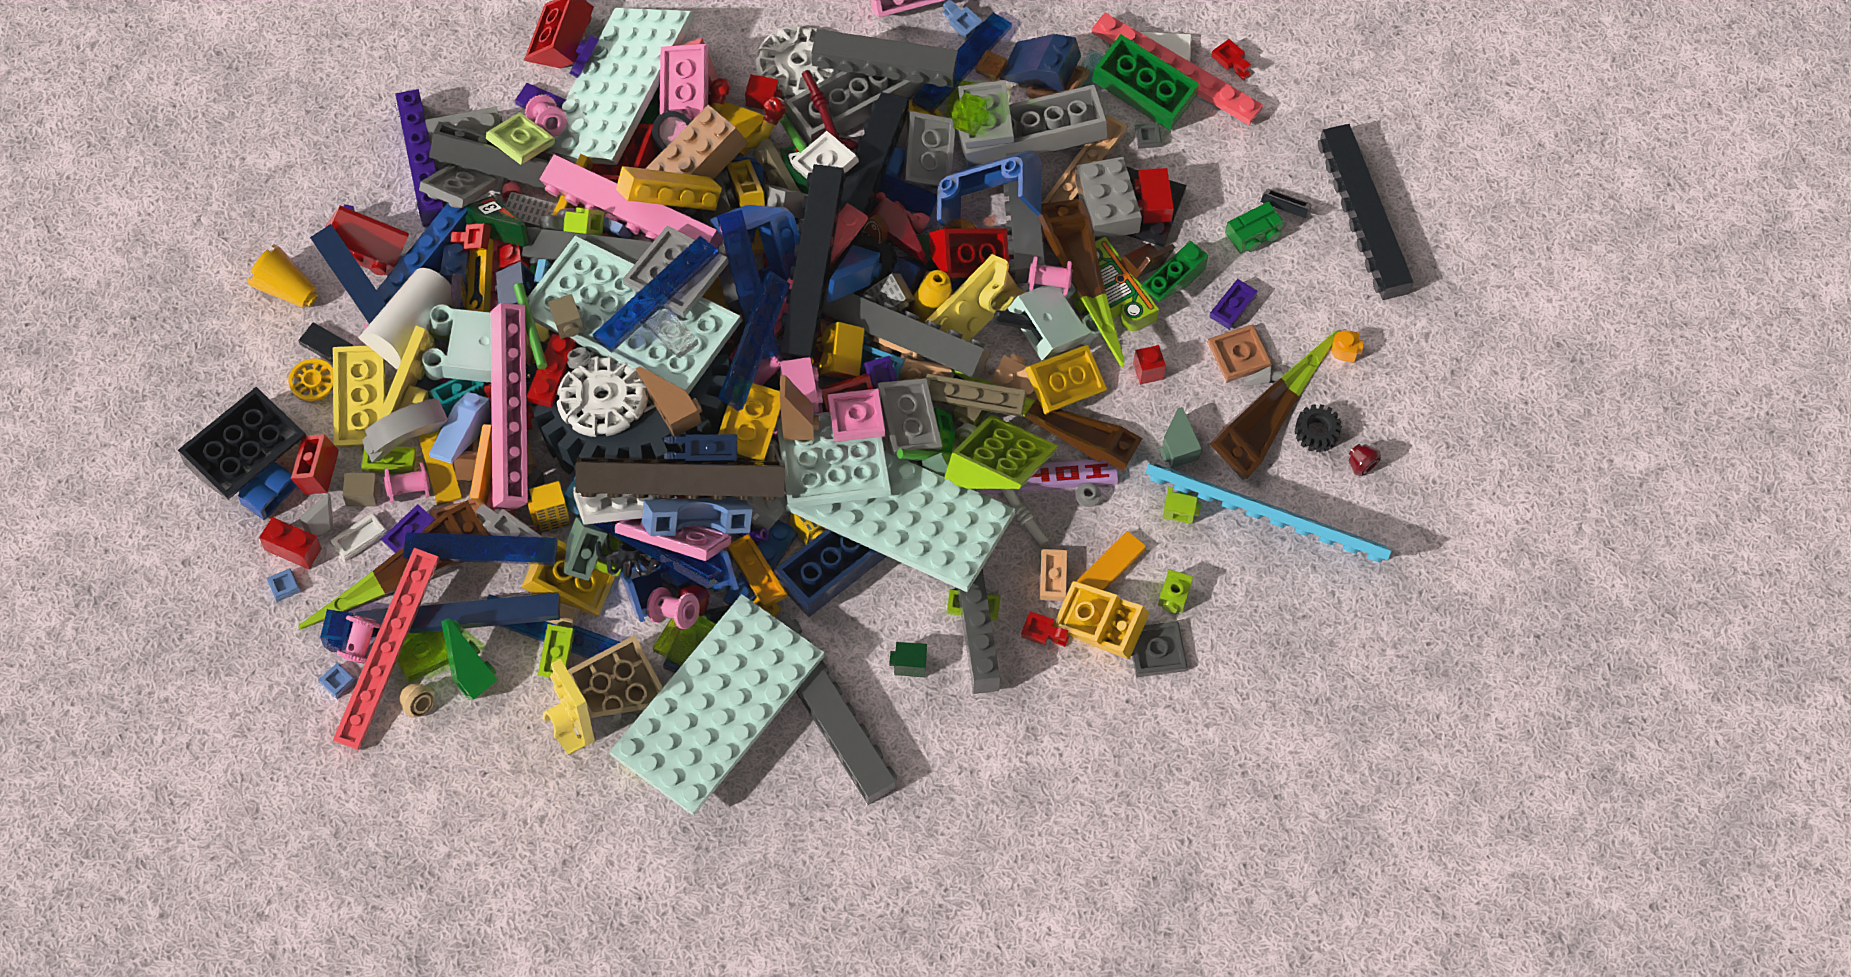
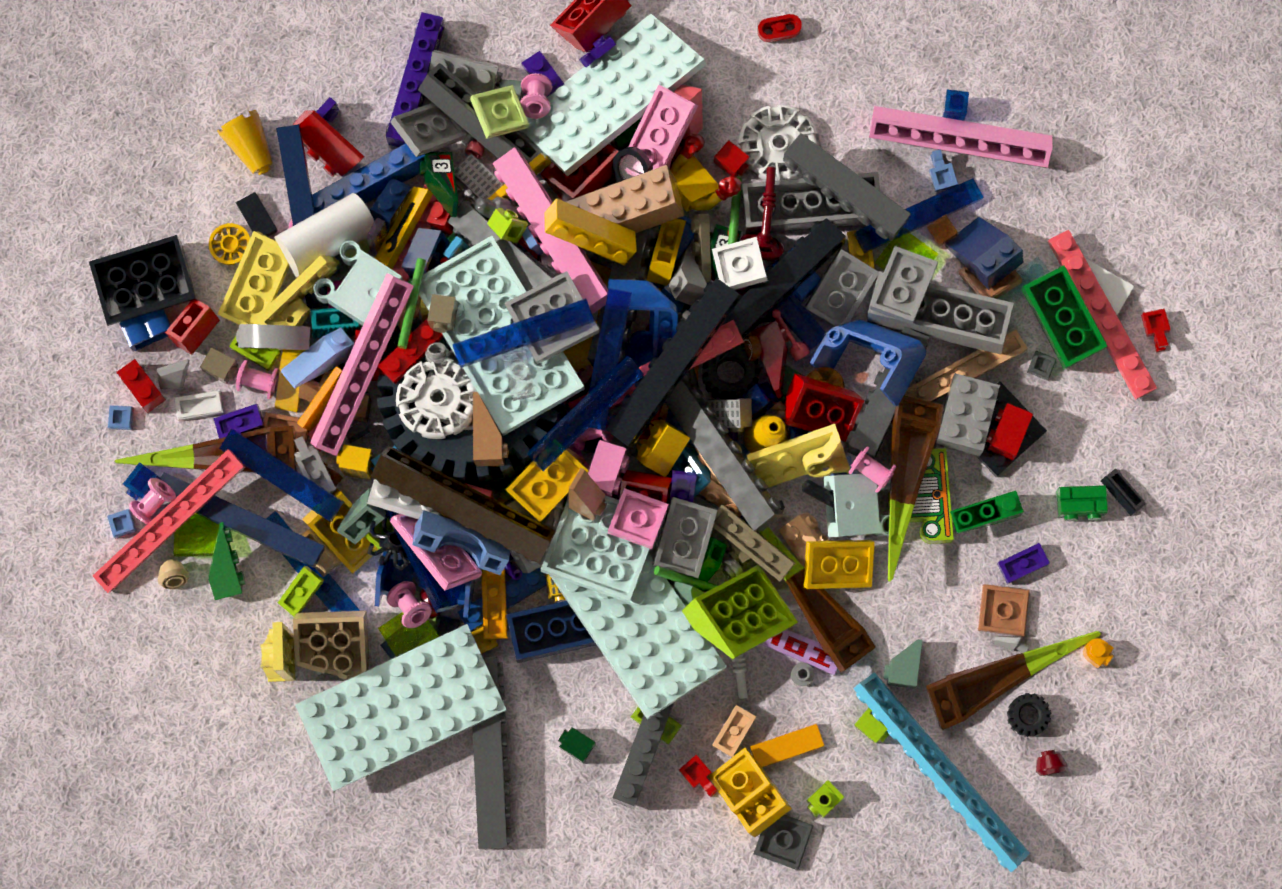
camera: 30 degrees right, 15 degrees up
(474, 238) = (417, 186): plate -> none
(704, 447) = (493, 489): dark blue hinge -> none
(854, 272) = (708, 384): blue slope -> none
(970, 113) = (887, 282): clear neon green brick -> none
(1145, 259) = (968, 485): reddish brown panel -> none
(1149, 364) = (918, 584): red brick -> none
(1365, 212) = (1187, 535): black brick -> none

